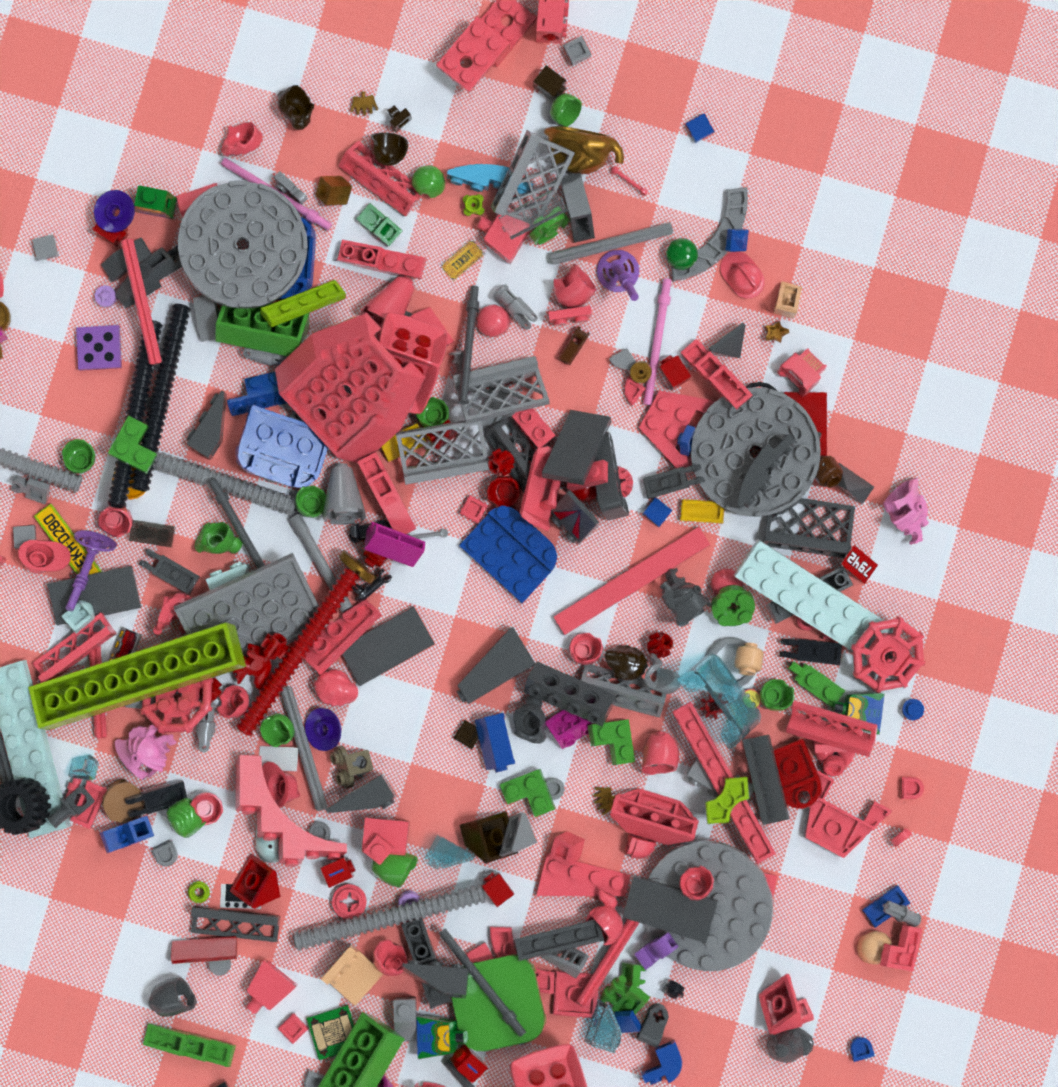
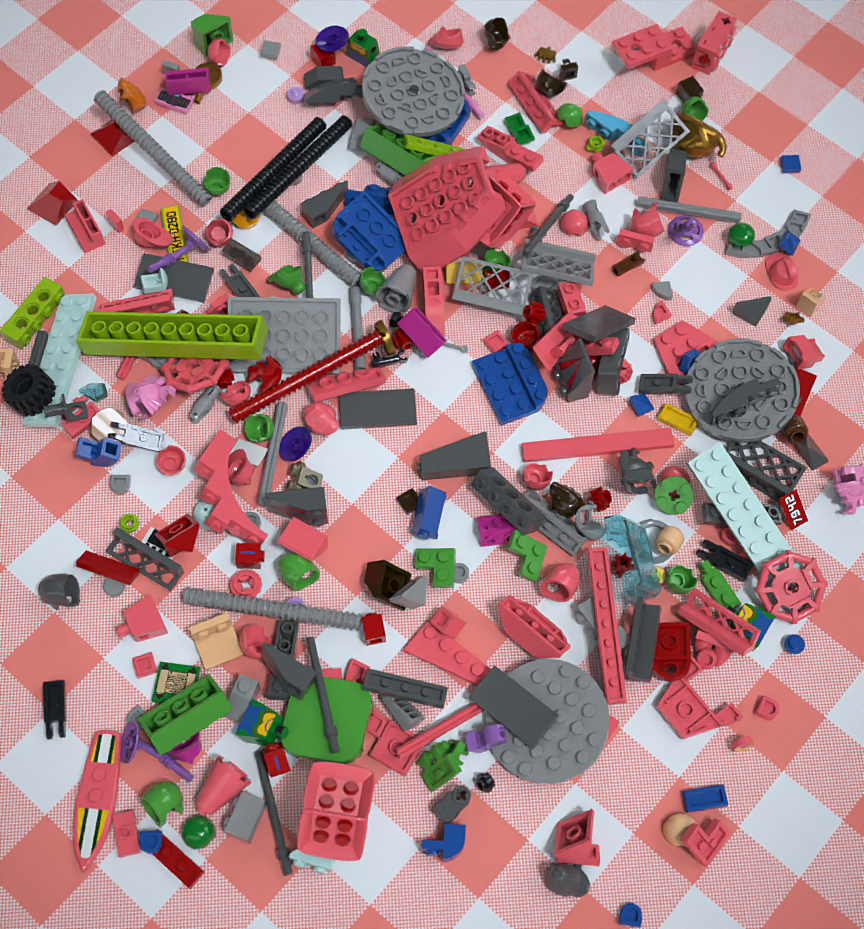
camera: 20 degrees right, 20 degrees down
(34, 489) = (171, 188): light grey plate -> none
(99, 347) = (272, 124): medium lavender tile -> none
(127, 447) = (257, 178): bright green plate -> none
(141, 301) = (319, 98): coral axle -> none
(184, 818) = (149, 457): bright green hair -> none
(189, 1045) = (52, 638): bright green slope -> none
(274, 646) = (290, 363): red gear -> none
(333, 190) = (497, 94): pearl gold panel -> none
(378, 849) = (291, 544): coral plate -> none
(446, 854) = (345, 582): clear light blue slope -> none
(462, 259) = (570, 176): clear tile -> none
(530, 721) = (465, 510): dark grey hair -> none
(532, 214) = (635, 157): clear piece -> none
(548, 230) = (647, 175): bright green plate -> none
(577, 51) = (719, 80): light grey plate -> none
(603, 1029) = (408, 786): clear light blue slope -> none
(606, 799) = (498, 597): pearl gold piece -> none
(607, 918) = (456, 691): coral hair -> none
(628, 1021) = (431, 789): blue tile -> none
(637, 375) = (673, 299): pearl gold tile -> none
(639, 847) = (510, 649): coral piece -> none
(663, 301) = (711, 263): bright pink bar -> none
(674, 371) = (700, 311): red brick -> none
(696, 883) = (547, 689): coral hair -> none
(716, 374) = (733, 322): coral slope -> none
(720, 808) = (595, 640): lime tile -> none
(902, 913) = (717, 807): light grey axle -> none

